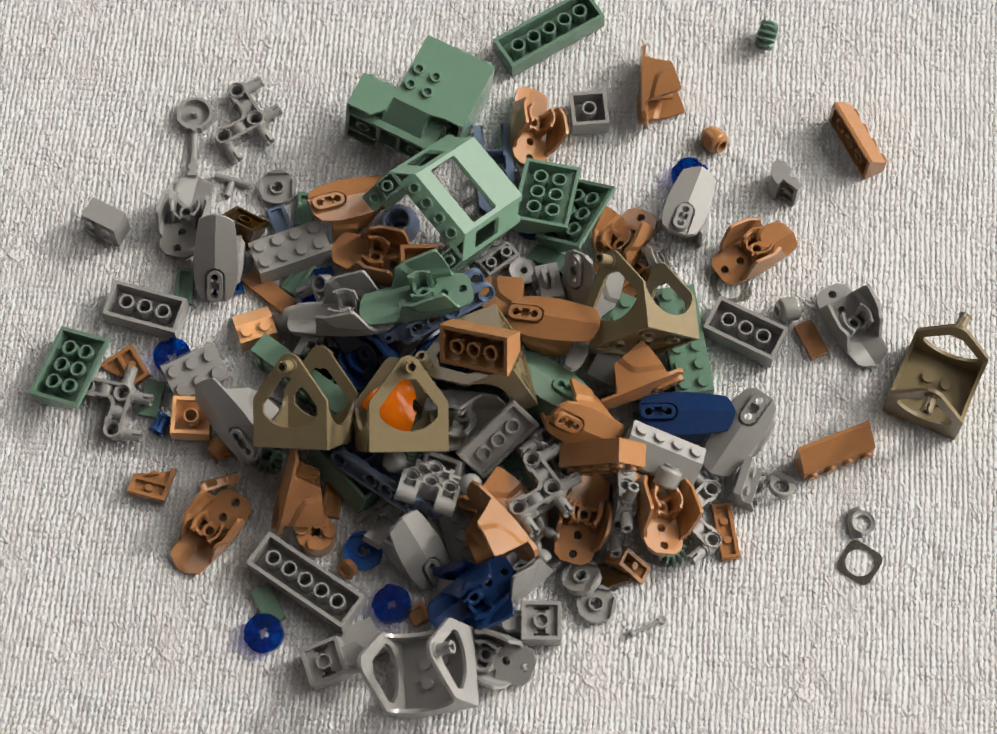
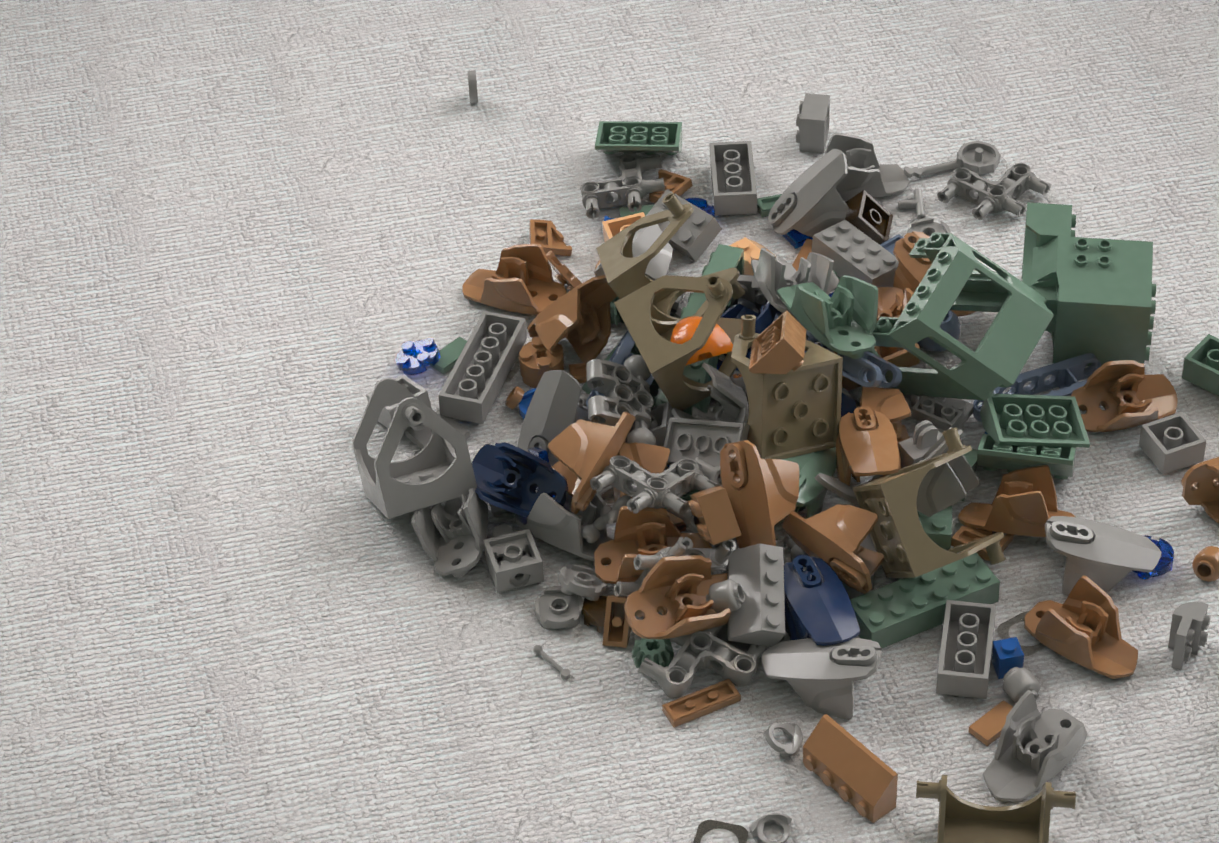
camera: 75 degrees right, 25 degrees down
(393, 615) = (486, 435): clear blue plate -> none
(654, 254) = (1026, 551): light grey plate -> none
(748, 486) = (766, 698): light grey brick -> none
(760, 304) = (1006, 655): none -> blue brick

